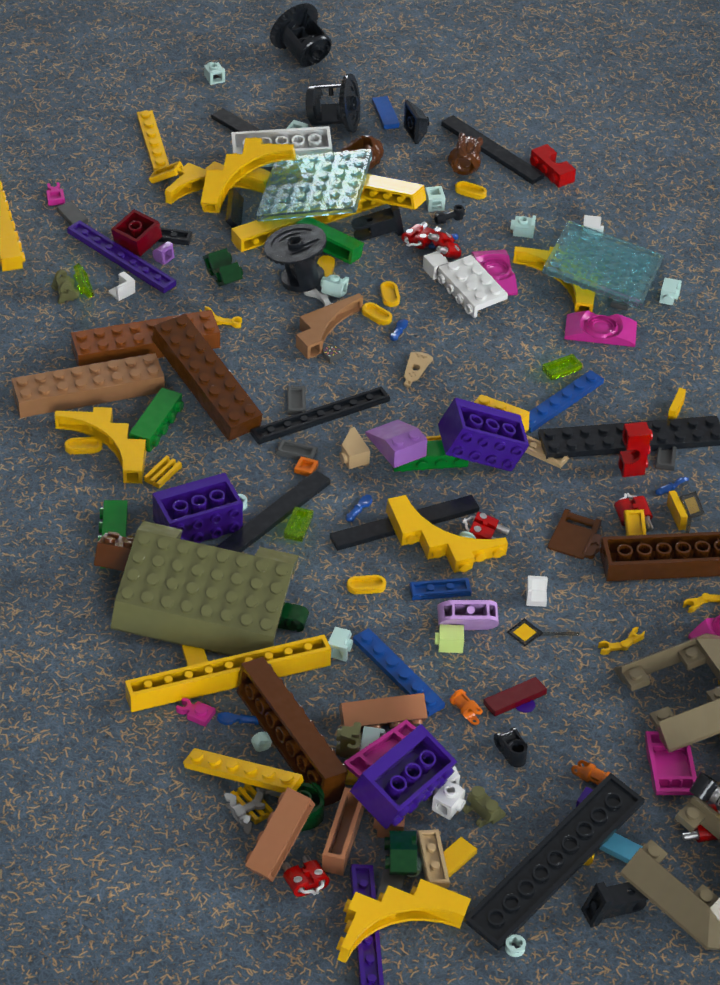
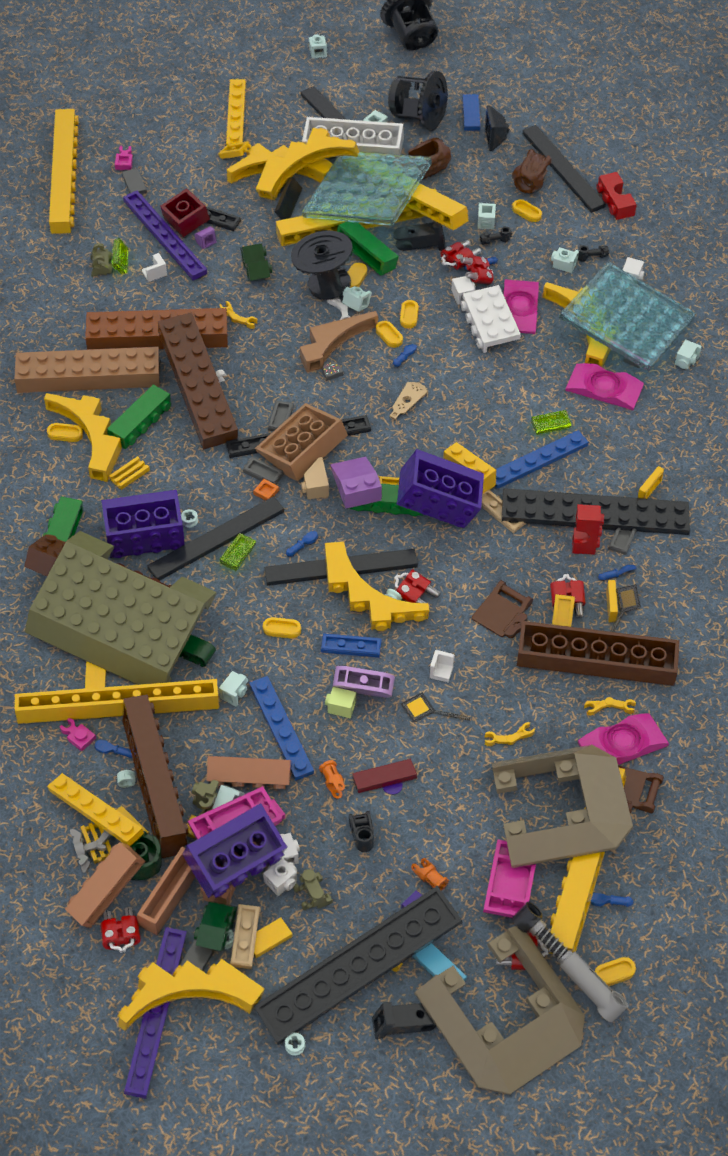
camera: 15 degrees right, 10 degrees up
(328, 416) = (302, 440): none -> medium nougat slope
(541, 217) = (584, 252): none -> black bar

